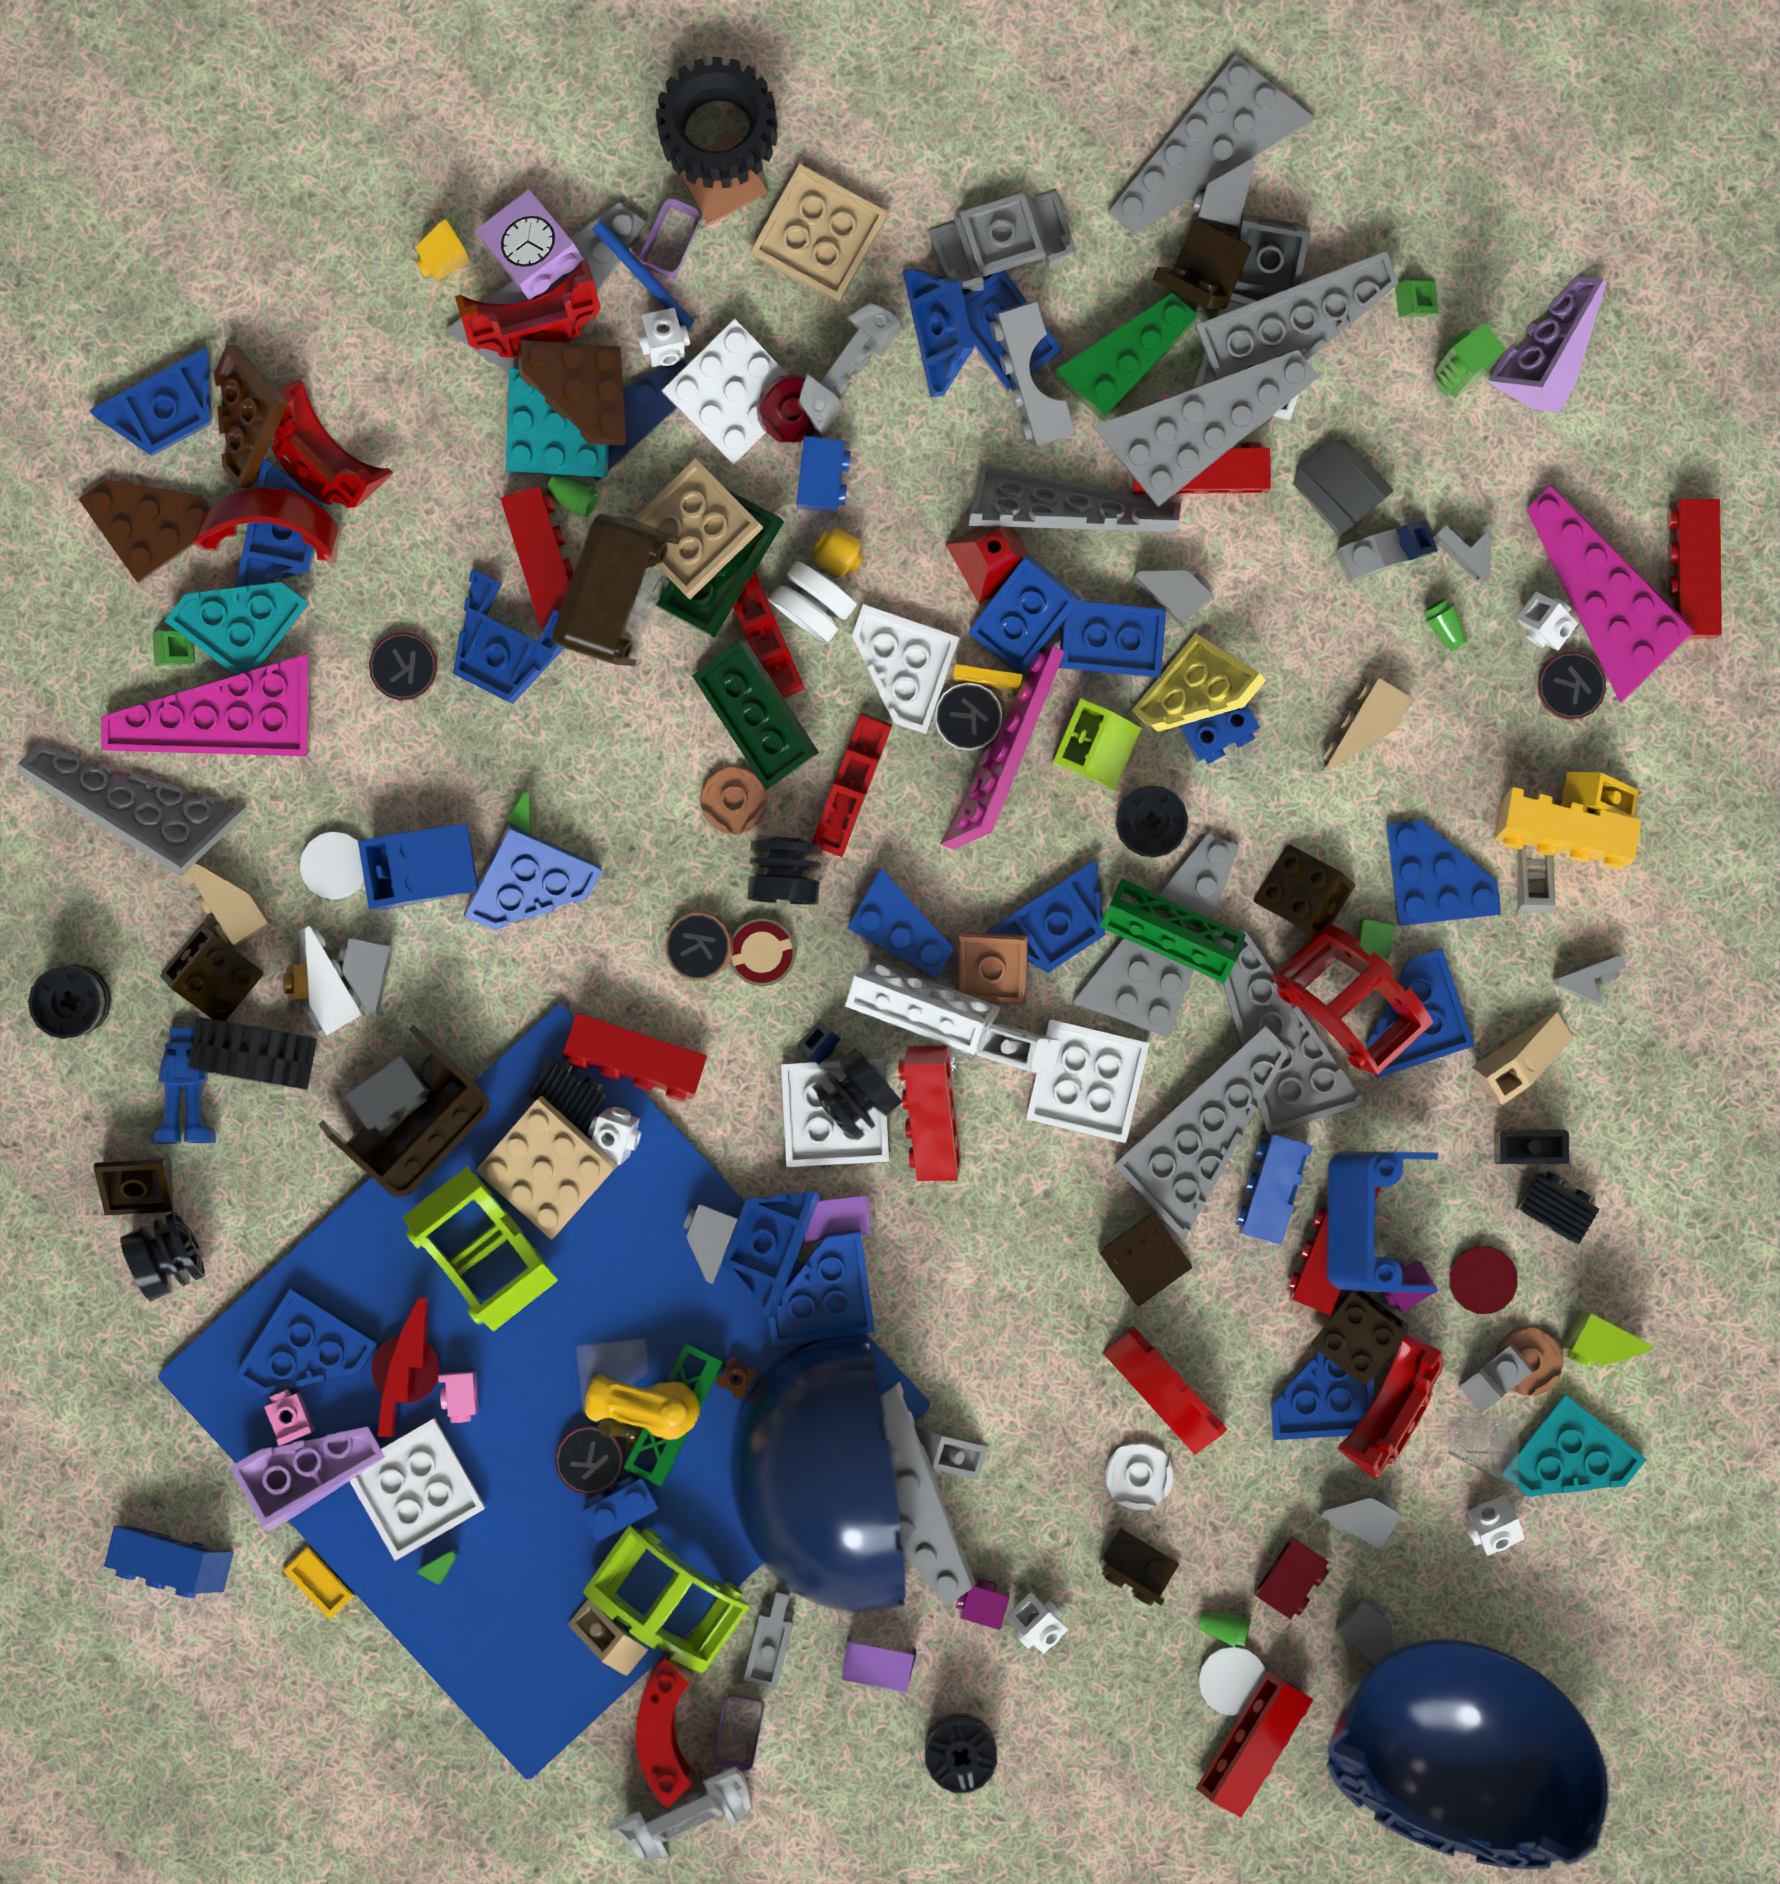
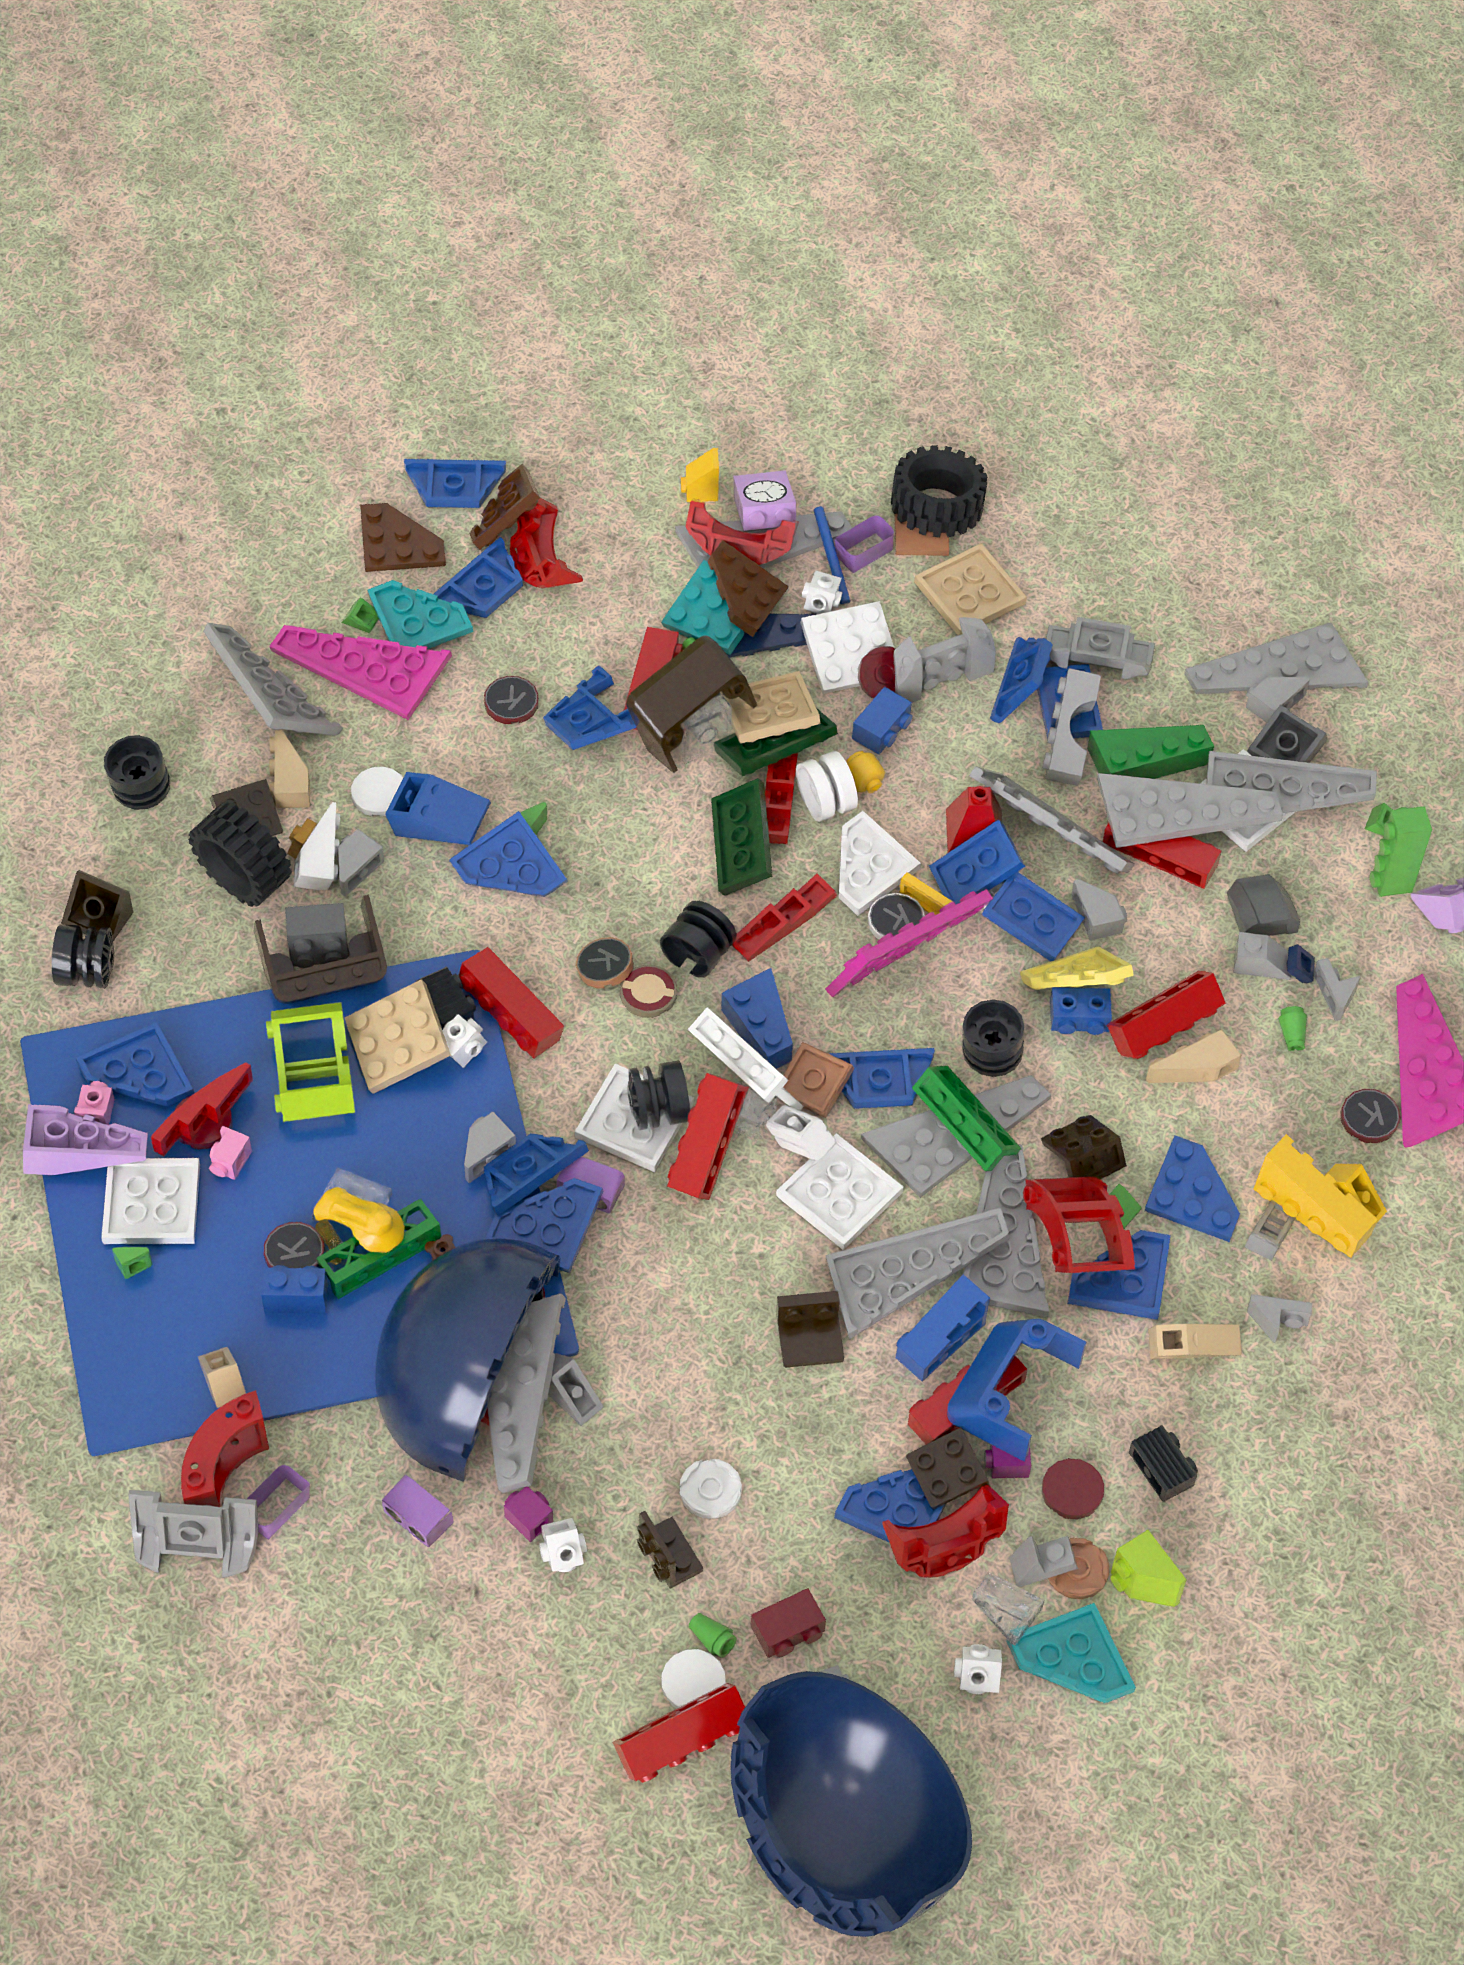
camera: 30 degrees right, 30 degrees down
(174, 1074) = (175, 857): blue piece -> none
(272, 507) = (482, 560): red windscreen -> none
(318, 1582) = (34, 1235): yellow tile -> none
(711, 1632) = (270, 1327): lime window -> none
(731, 811) = (679, 896): nougat tile -> none
(770, 1643) = (343, 1453): light grey hinge -> none
(819, 1043) = (653, 1064): dark blue plate -> none
(955, 1733) = (441, 1623): black wheel -> none
(1096, 744) = (980, 971): lime slope -> none
(1164, 1390) = (771, 1434): red windscreen -> none
(1206, 266) = (1238, 725): dark brown bracket -> none
(1311, 686) = (1166, 1014): none -> red brick
(1365, 1518) = (874, 1609): light grey slope -> none
(1531, 1146) = (1165, 1404): black brick -> none
(1547, 621) = (1373, 1058): white brick -> none

